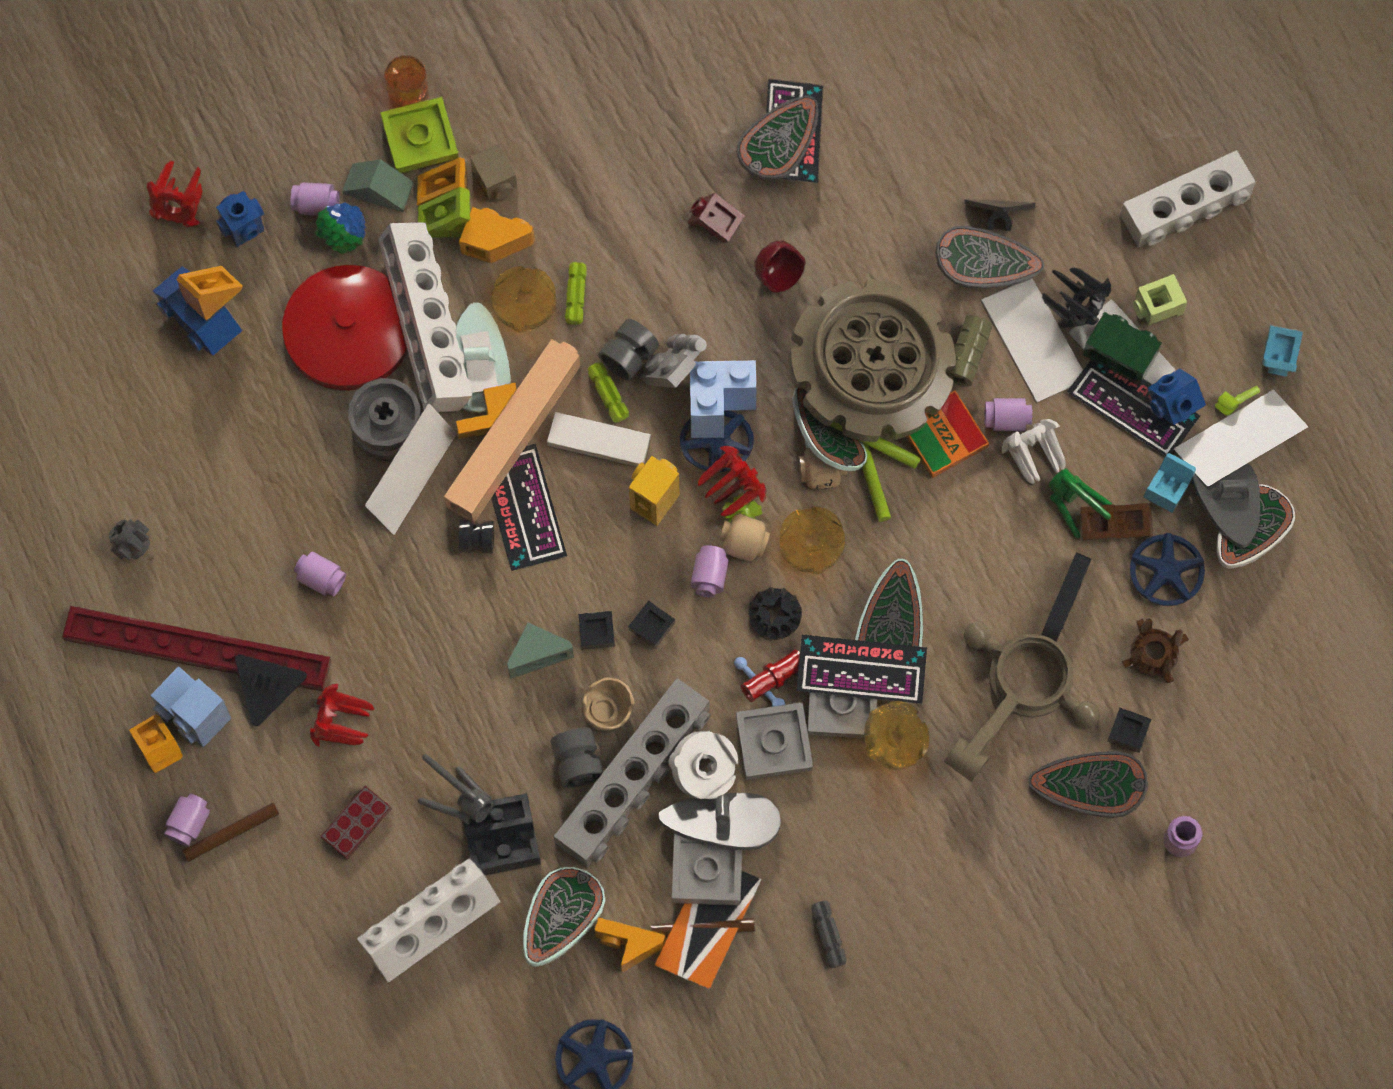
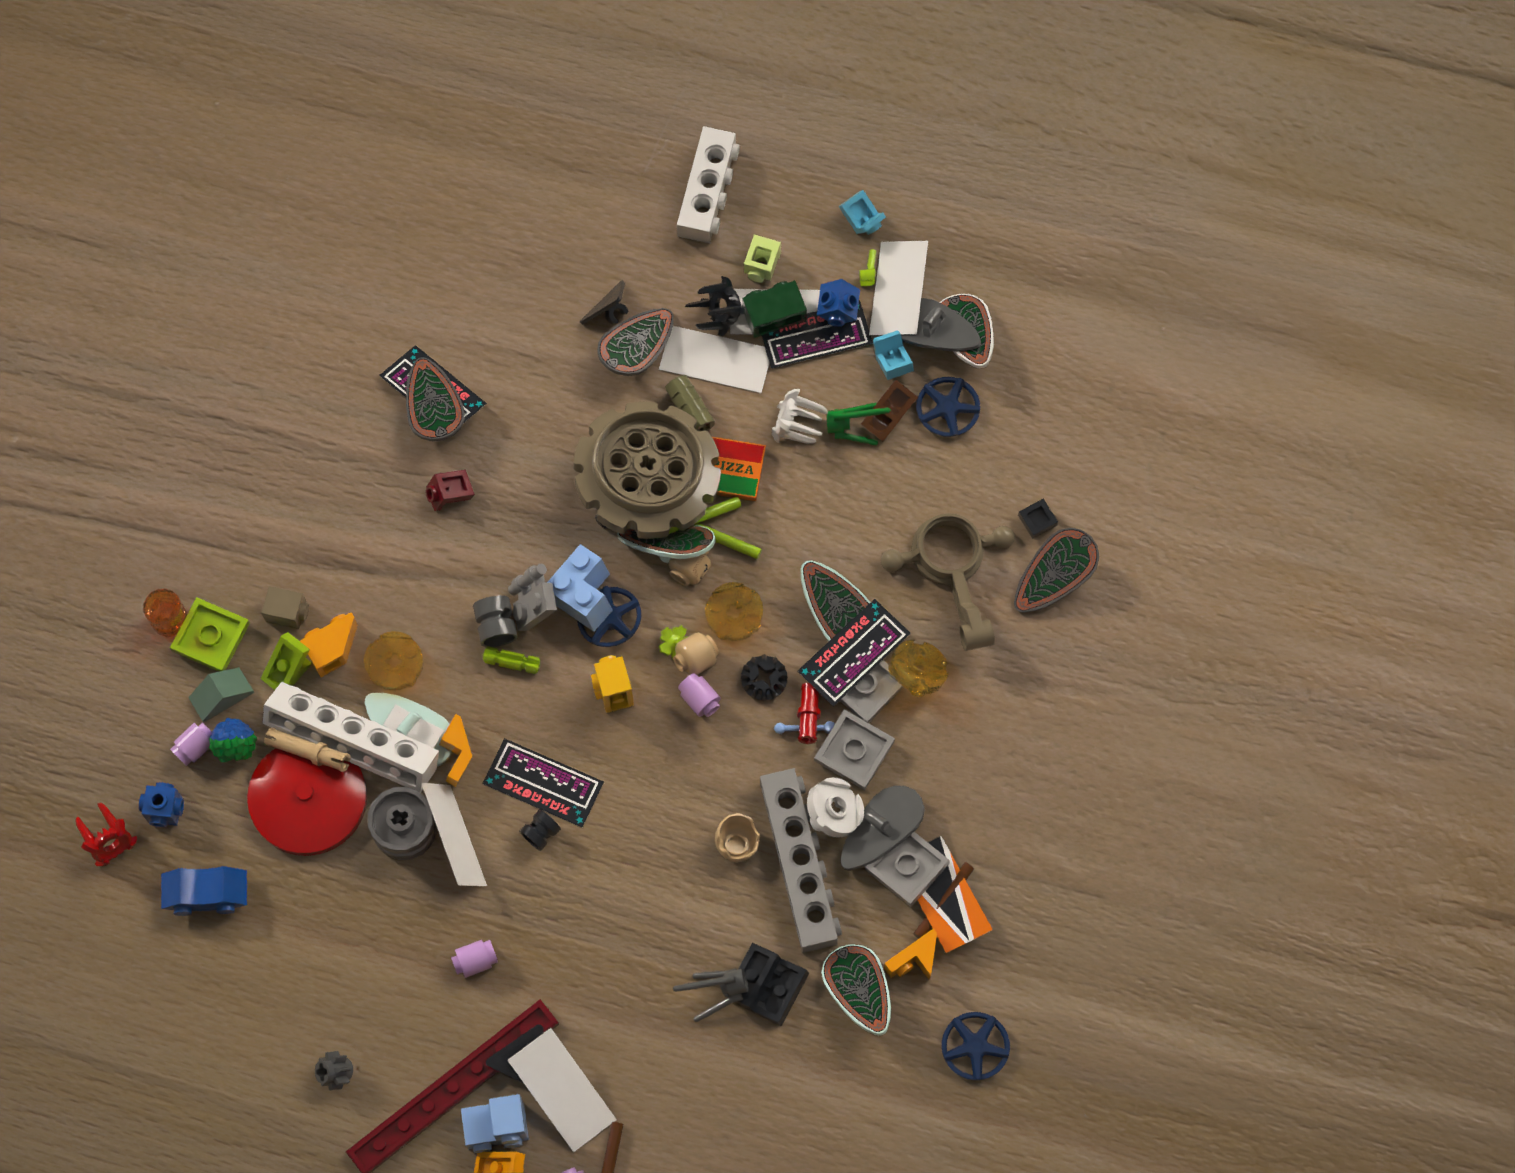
camera: 50 degrees left, 0 degrees up
(208, 289) = (202, 867): light orange slope -> none
(264, 737) = (562, 1089): none -> white sticker
(332, 701) = (578, 1027): red piece -> none
(356, 823) = (675, 1076): dark red tile -> none
(386, 302) = (318, 753): none -> tan pin
(428, 920) = (790, 1079): white brick -> none
(441, 180) = (259, 647): light orange slope -> none
(512, 430) = (484, 744): light nougat brick -> none
(537, 650) = (657, 852): sand green slope -> none
(575, 293) = (420, 624): lime axle -> none
(577, 759) = (757, 888): dark grey wheel -> none
(596, 630) = (676, 803): black plate -> none
(598, 439) = (540, 693): white tile -> none
(651, 624) = (704, 764): black plate -> none
(739, 470) = (653, 617): red piece -> none
(779, 266) = (523, 475): dark red hair -> none
(828, 934) = (1016, 822): dark grey axle -> none
(1007, 414) = (756, 417): lavender brick -> none
(1066, 596) = (914, 483): black beam -> none
(1149, 666) = (992, 471): reddish brown piece -> none
(1185, 827) = (1139, 543): lavender brick -> none

